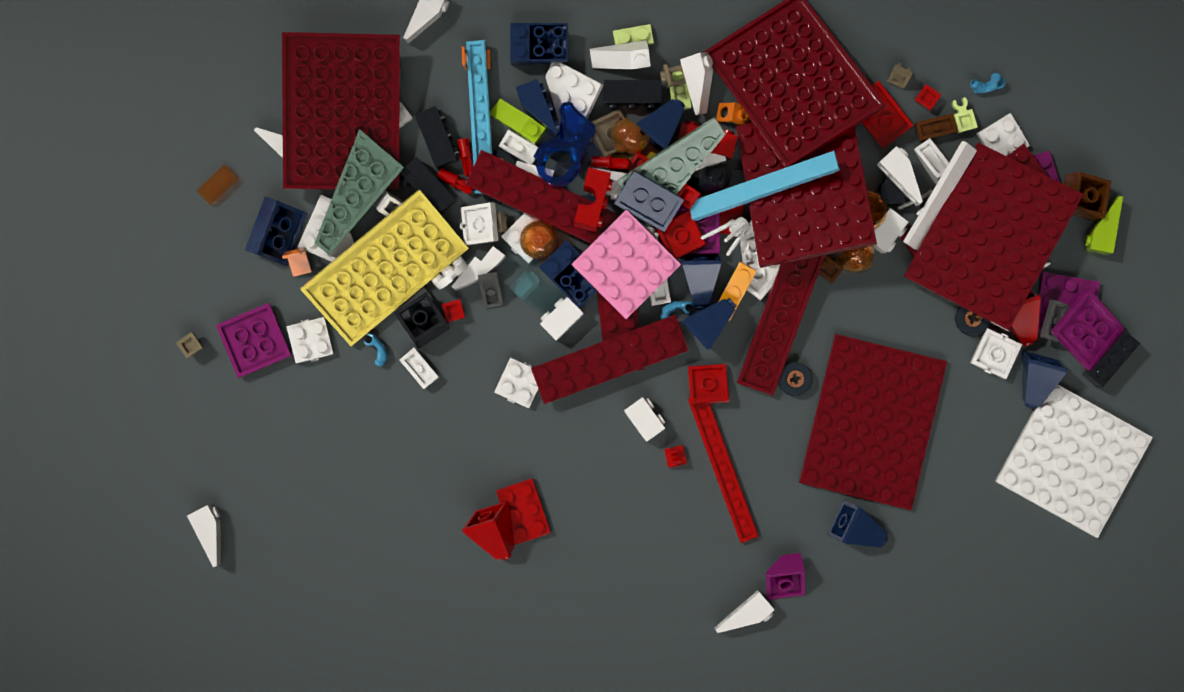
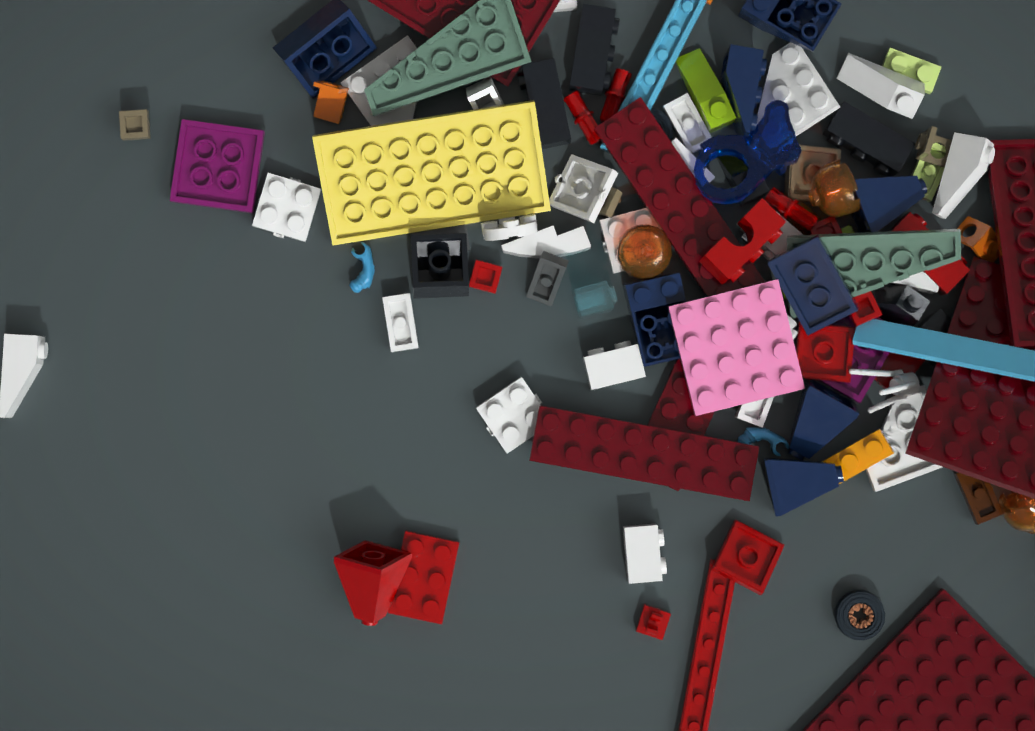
camera: 25 degrees right, 0 degrees up
(779, 324) = (881, 535): dark red plate -> none

